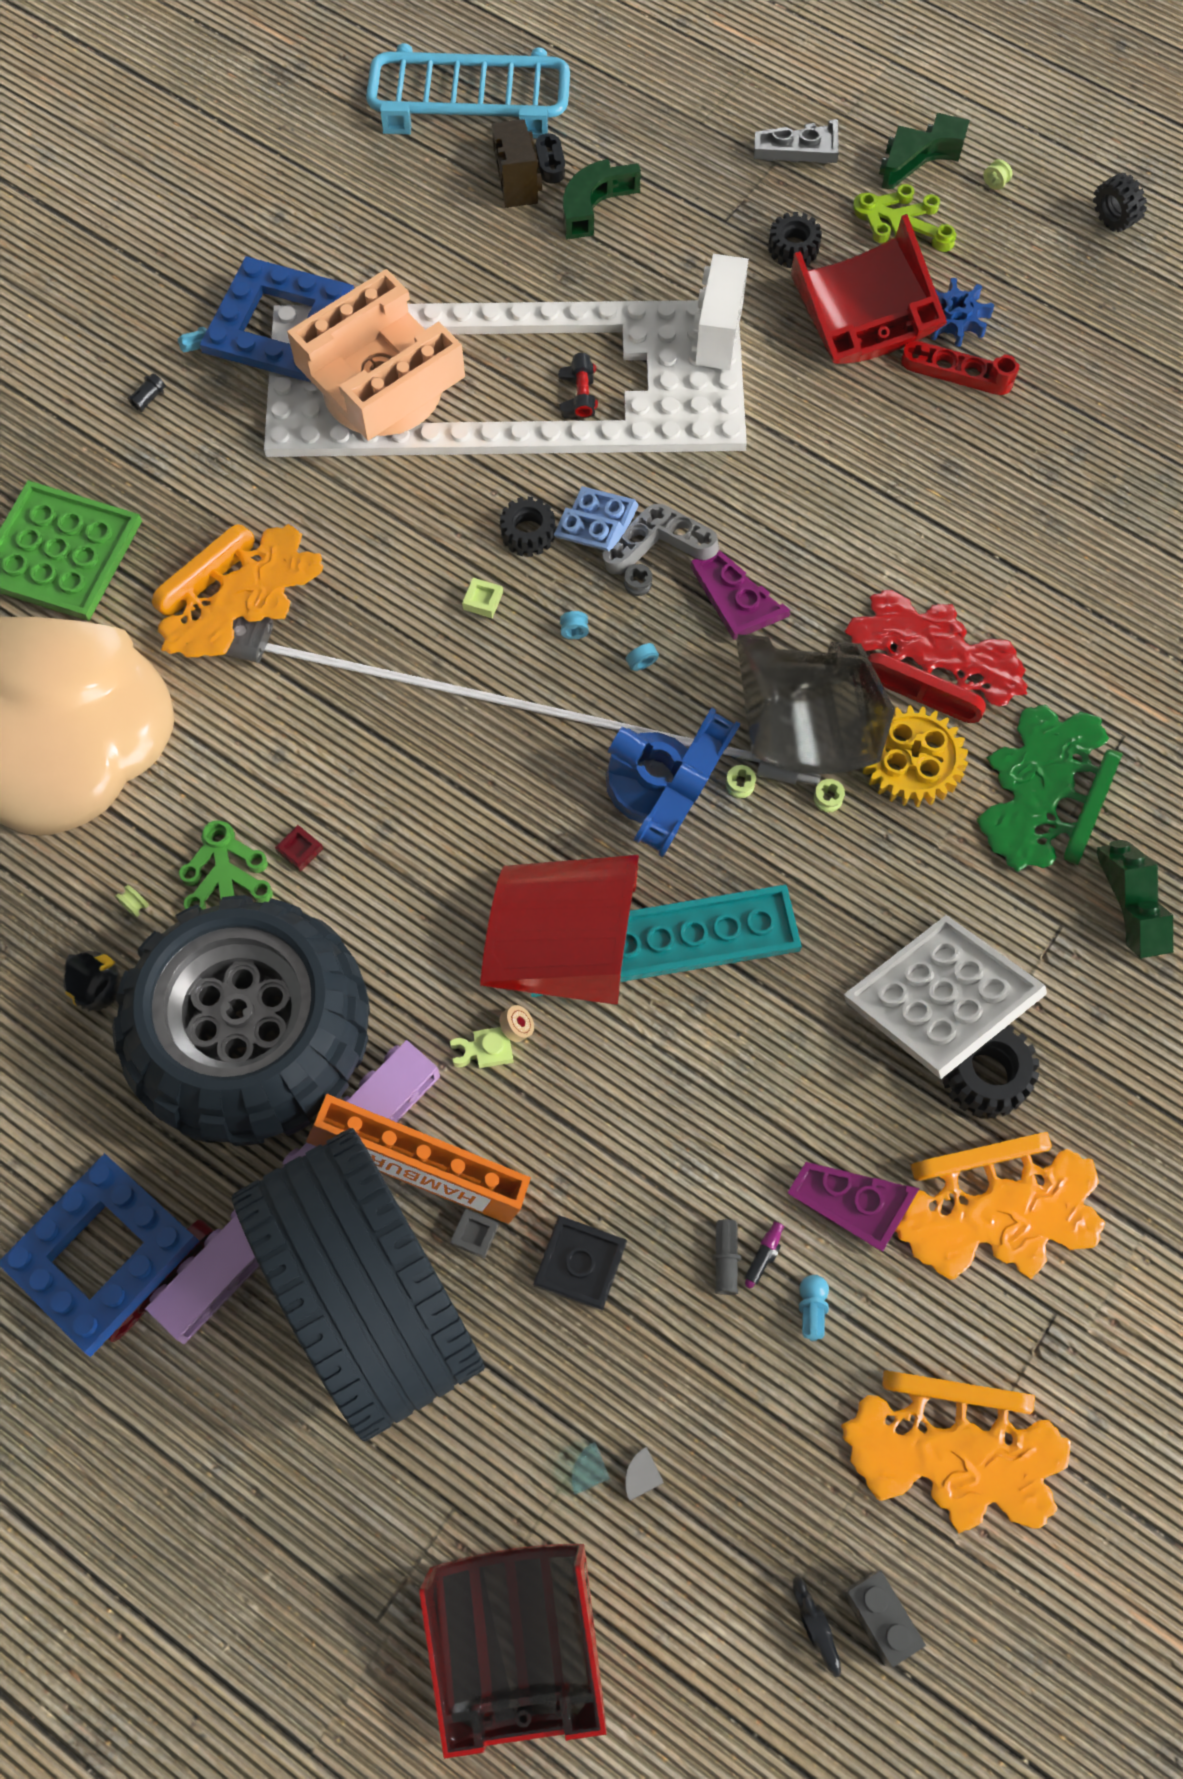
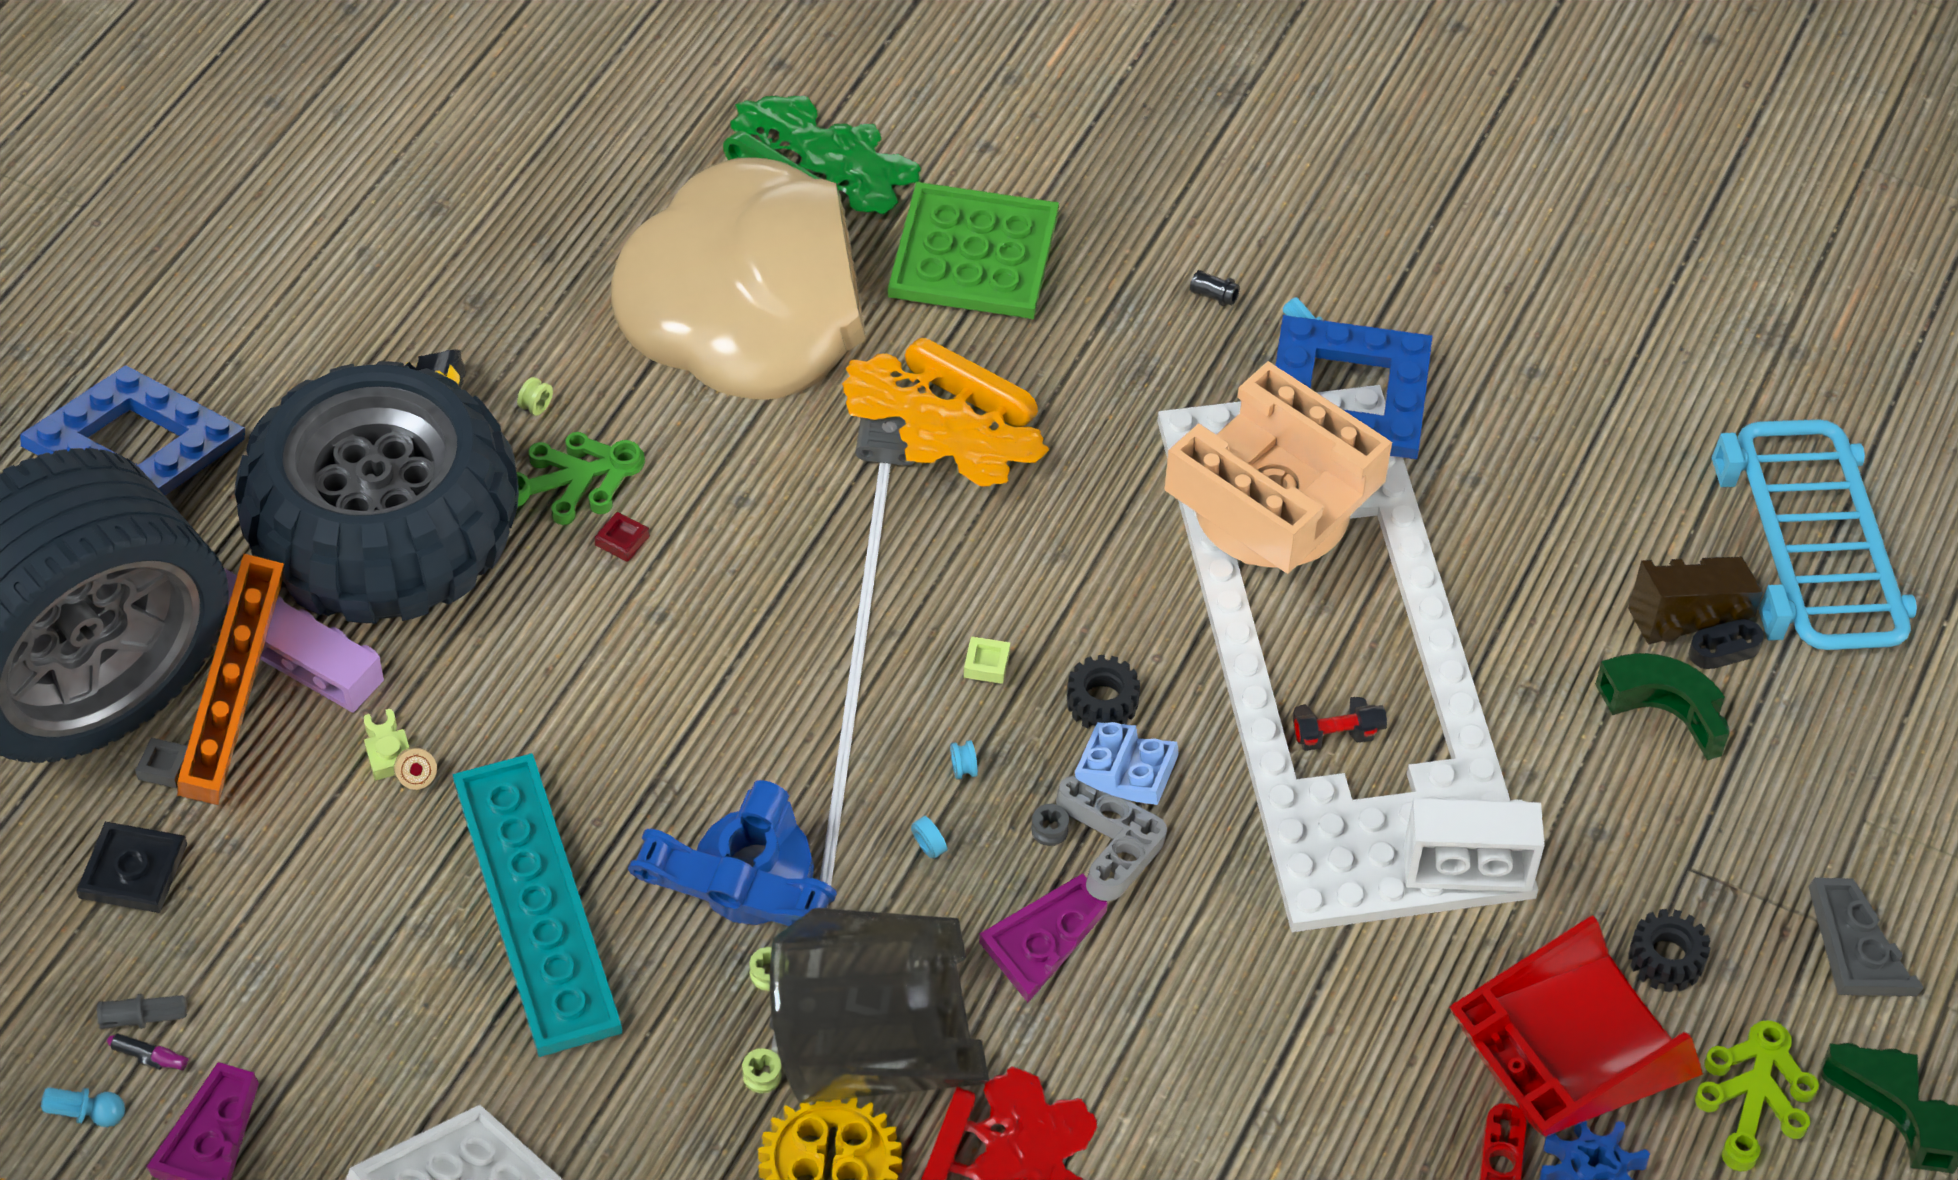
camera: 80 degrees right, 15 degrees down
(560, 928) = (536, 765): red windscreen -> none

